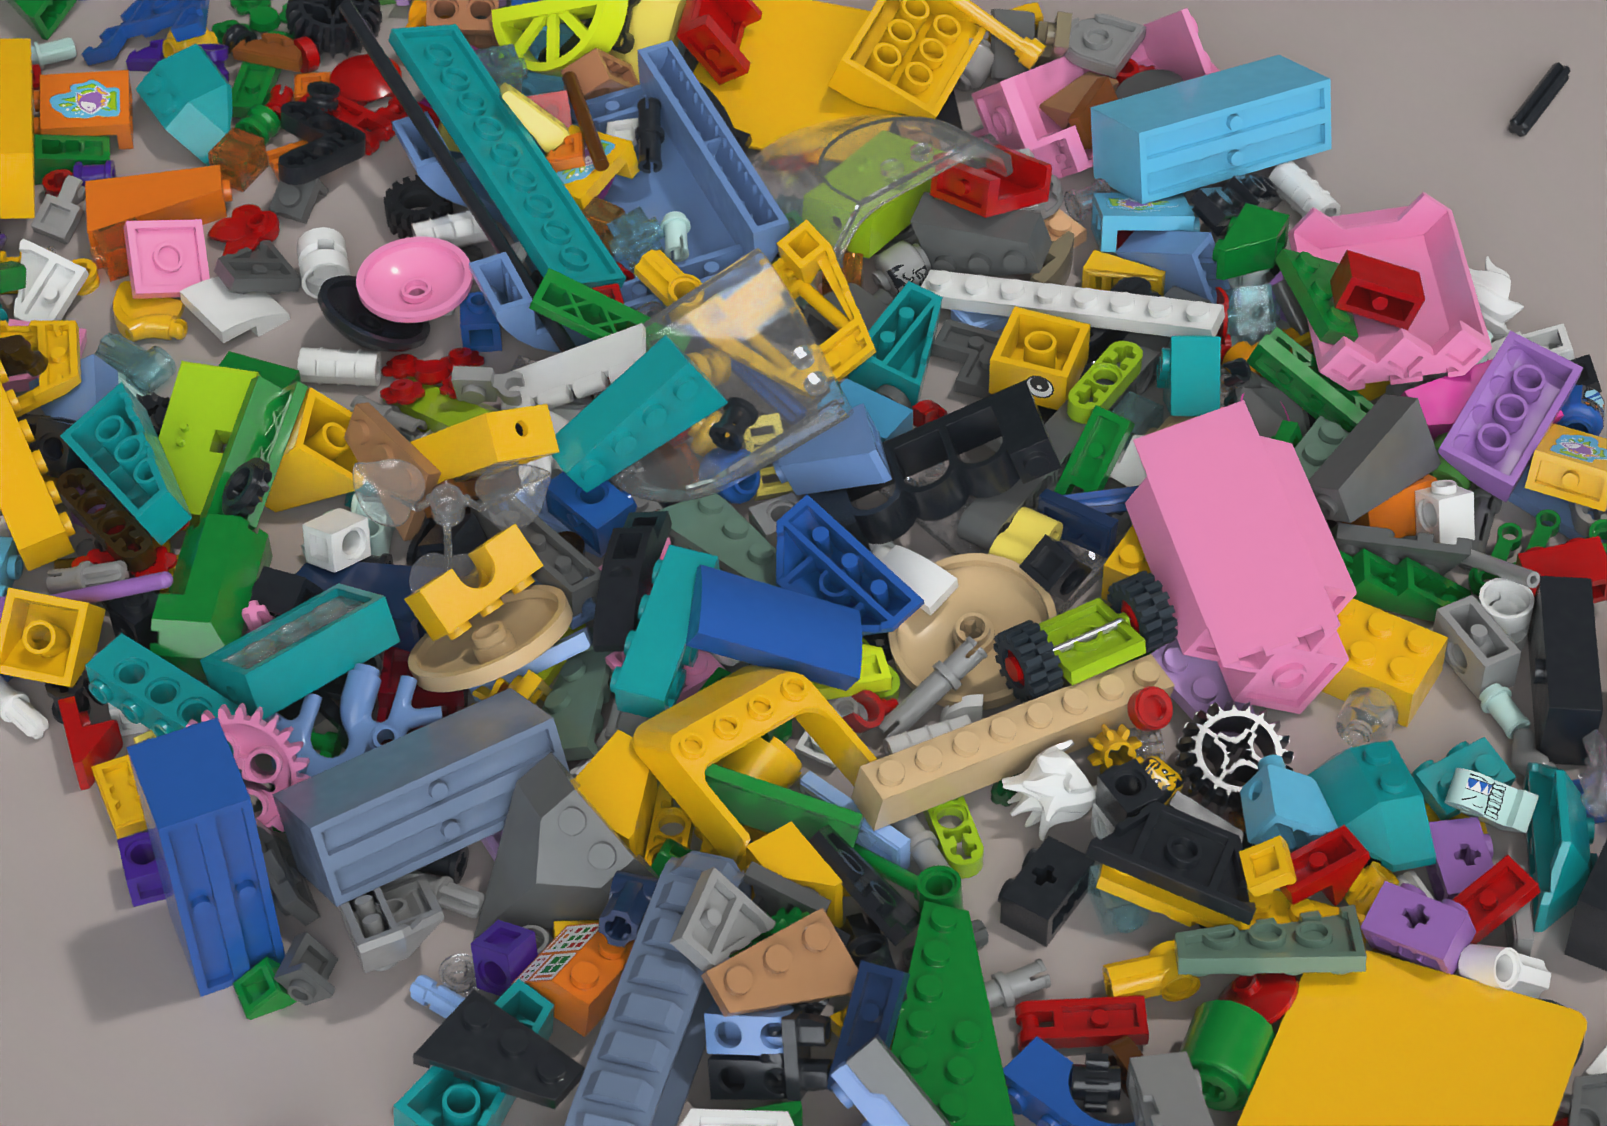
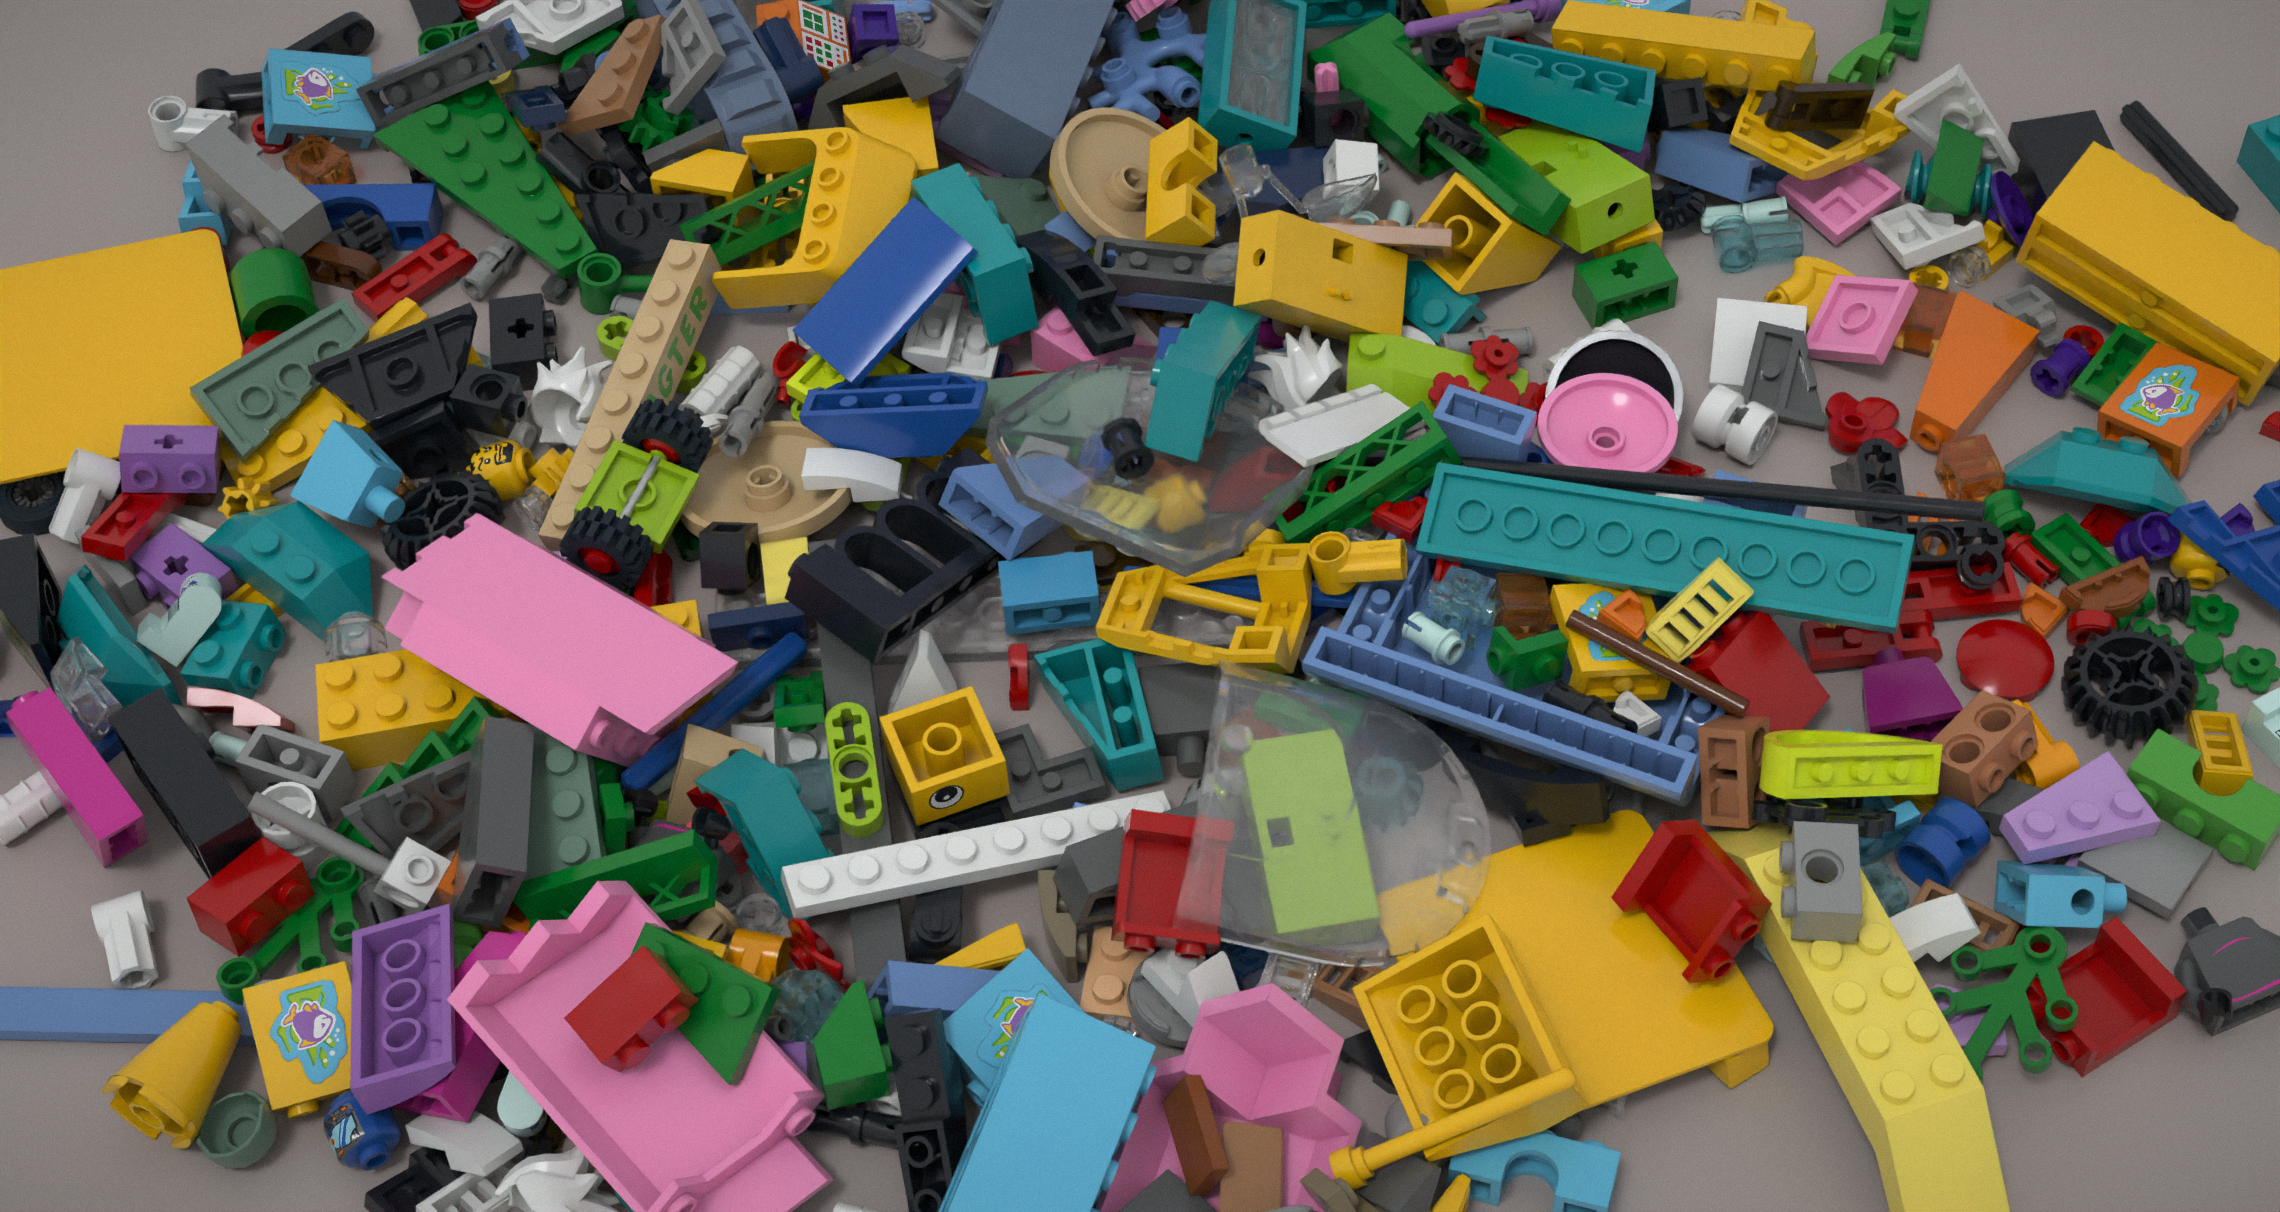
camera: 140 degrees right, 5 degrees up
(482, 385) = (1412, 371): light grey plate -> none
(504, 65) = (1841, 690): clear light blue brick -> none
(639, 187) = (1527, 660): none -> green bracket
(1150, 708) = (538, 493): red tile -> none
(1268, 866) = (316, 396): yellow tile -> none
(1327, 866) = (287, 455): red slope -> none
(1478, 717) = (246, 712): none -> slope

